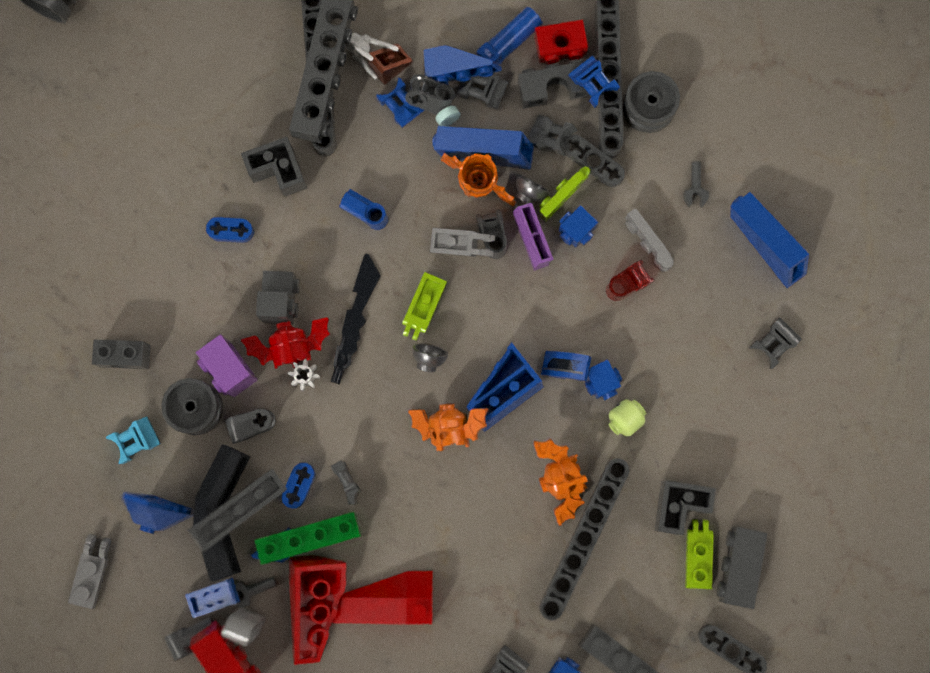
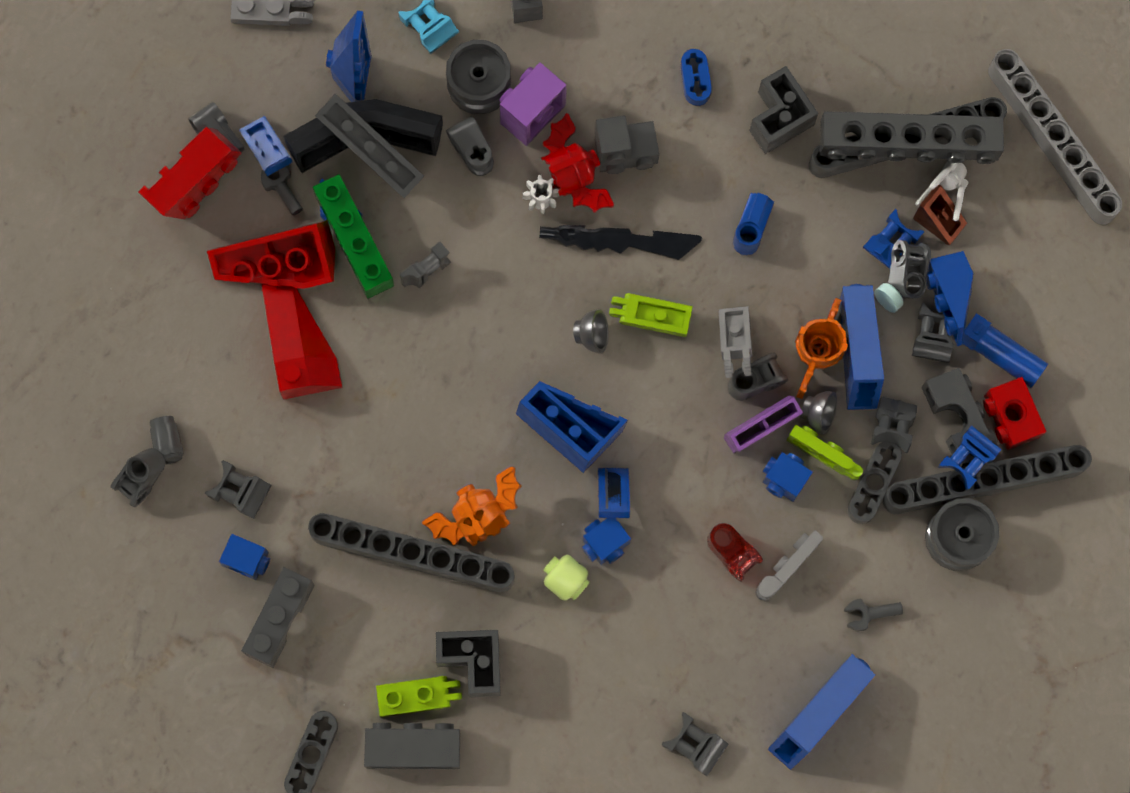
camera: 70 degrees right, 5 degrees down
(243, 626) = (240, 182): light grey beam -> none
(304, 488) = (413, 208): blue beam -> none
(449, 425) = (514, 367): orange helmet -> none

